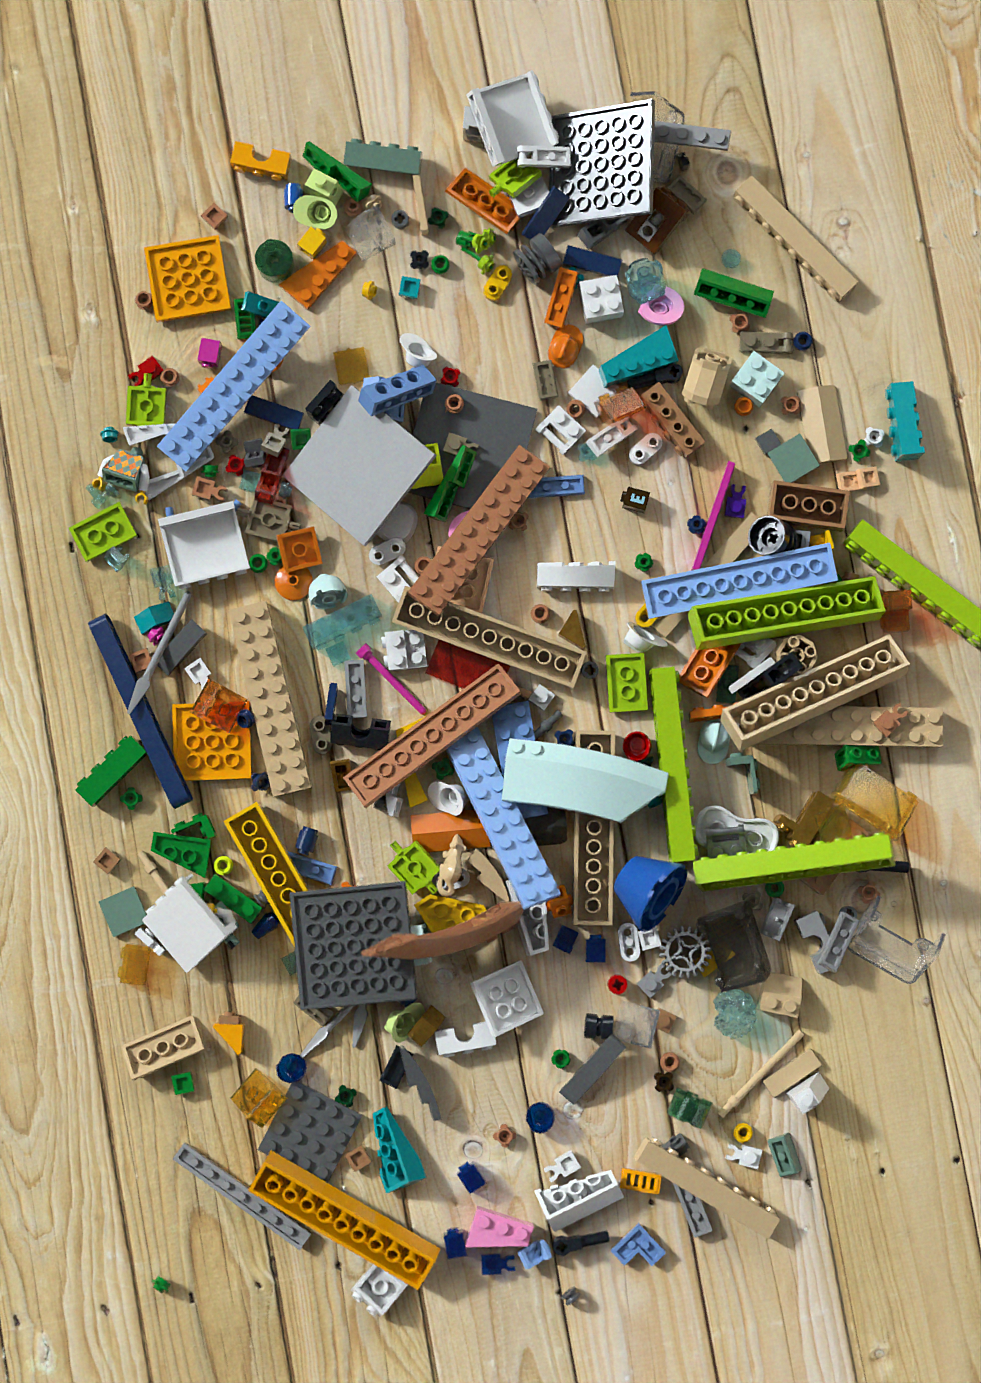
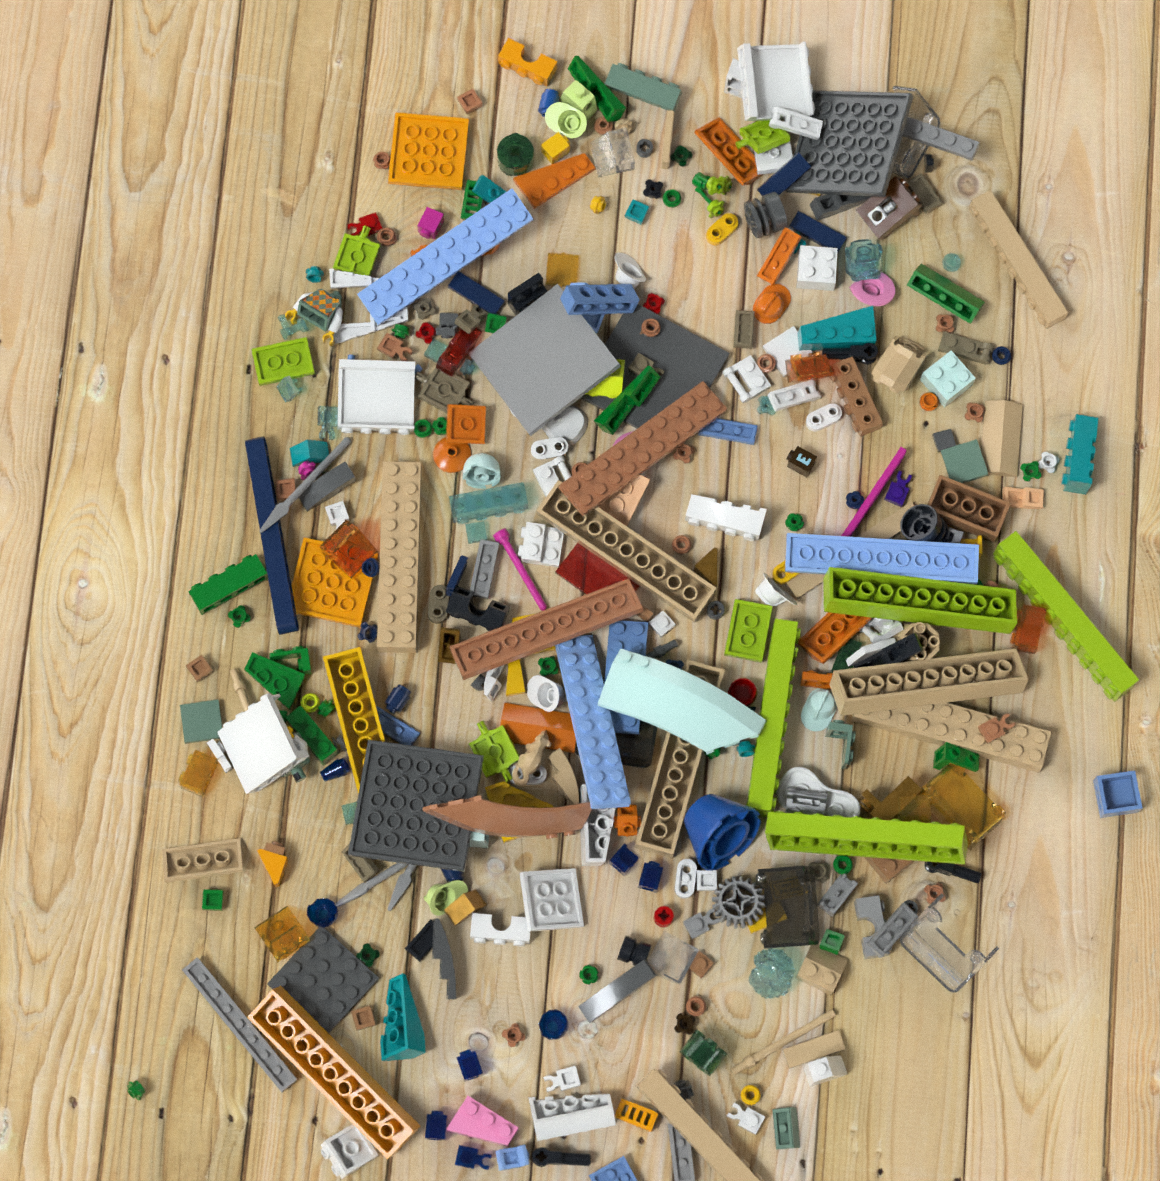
camera: 15 degrees right, 10 degrees down
(240, 867) = (326, 707): none -> green plate
(783, 966) = (832, 941): none -> green plate

